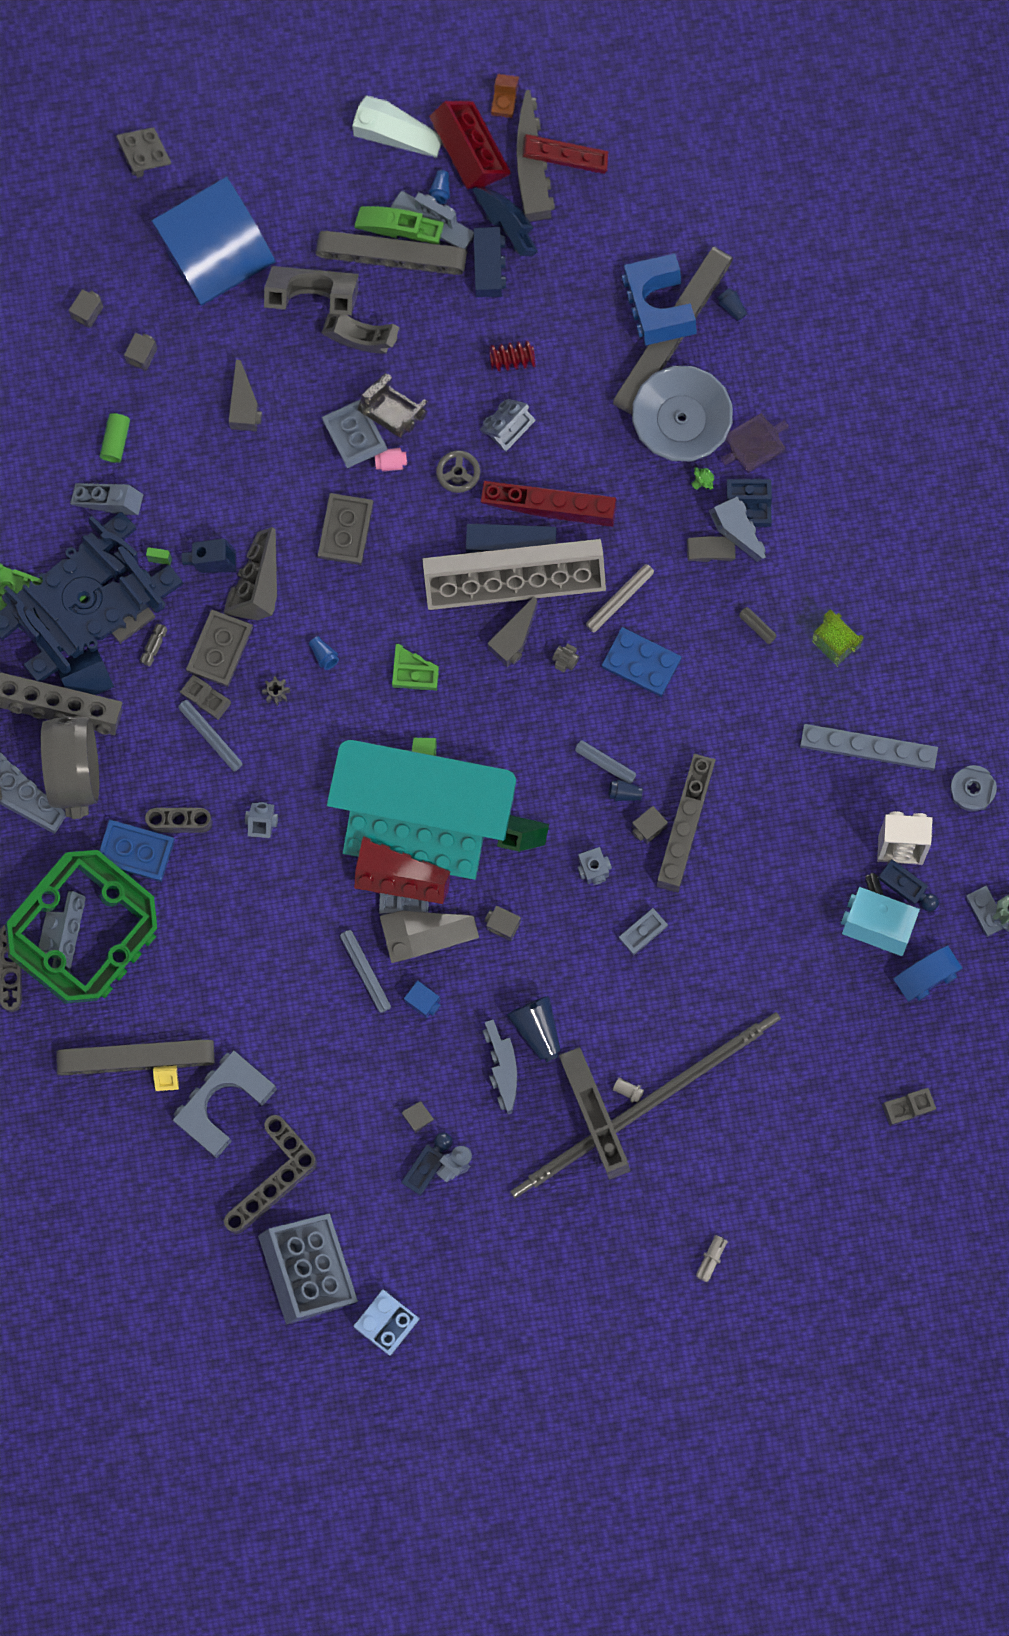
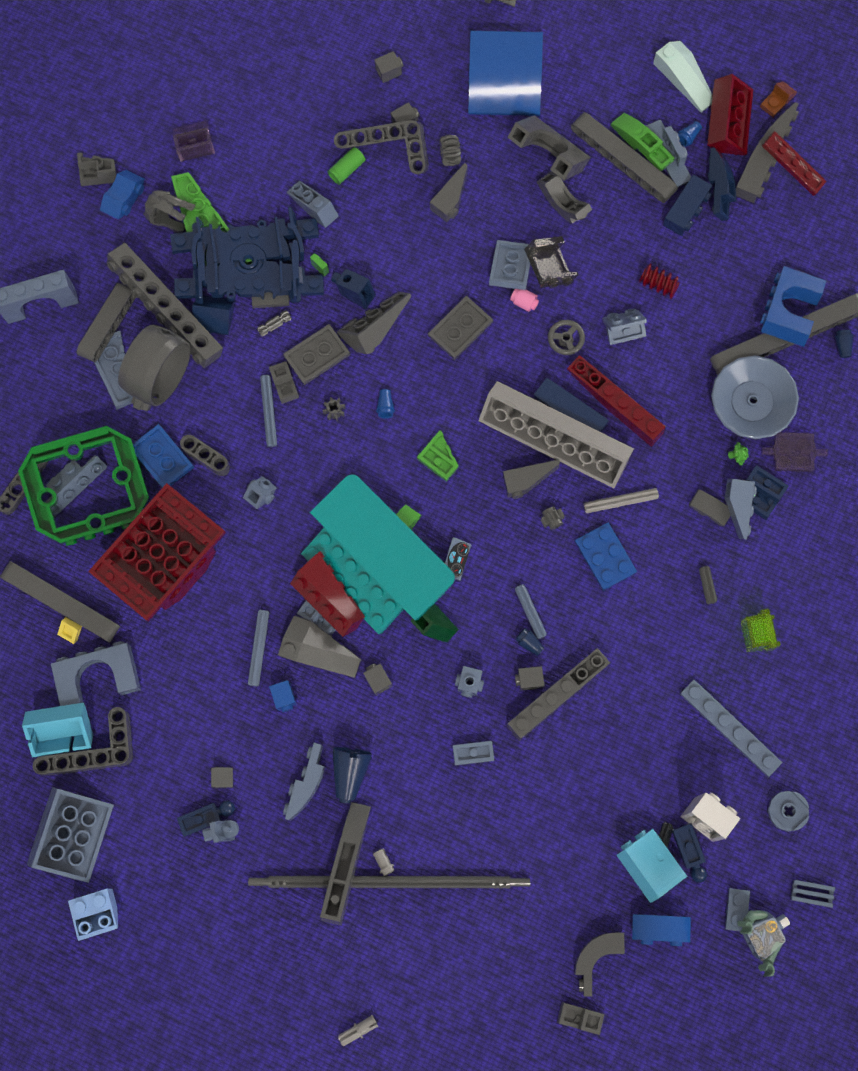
camera: 35 degrees right, 0 degrees up
(140, 381) = (387, 136): none -> dark grey beam
(208, 940) = (159, 554): none -> dark red wedge
(211, 355) = (450, 150): none -> dark grey gear
(219, 1179) = (52, 729): none -> medium azure piece
(498, 753) = (457, 557): none -> slope
(886, 1023) = (596, 948): none -> dark grey arch

